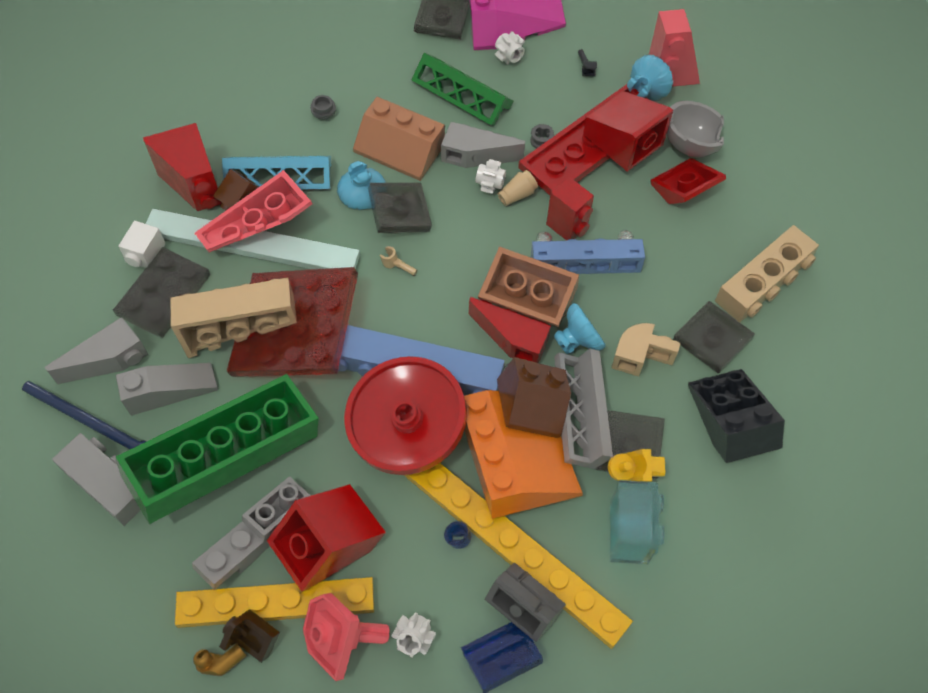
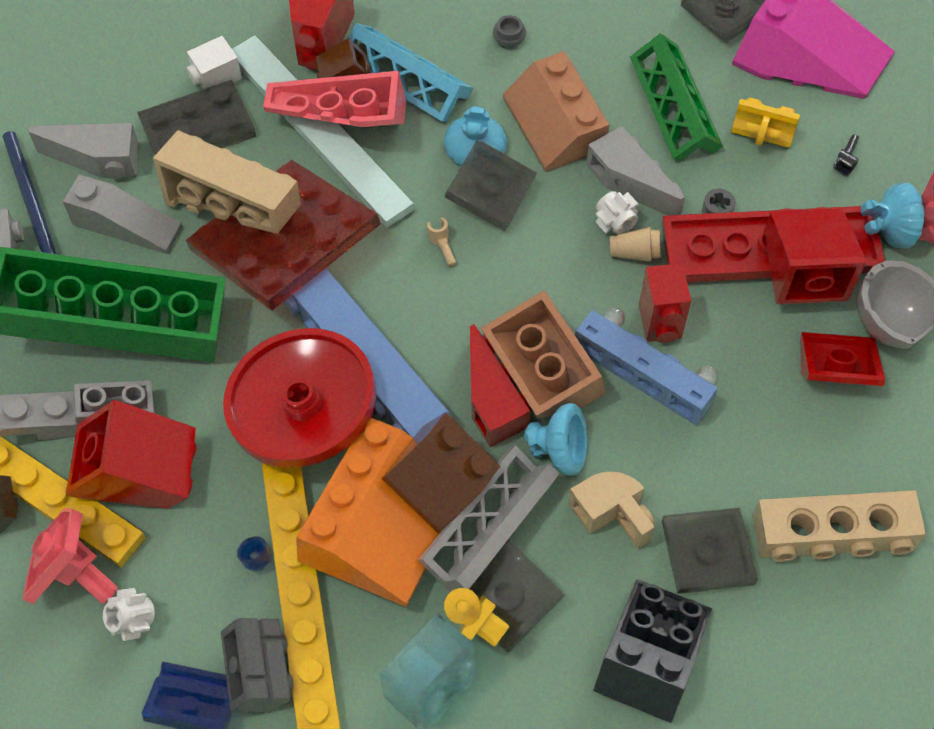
camera: 40 degrees right, 0 degrees up
(509, 47) = (768, 84): white gear -> none
(527, 71) = (765, 122): none -> yellow hips

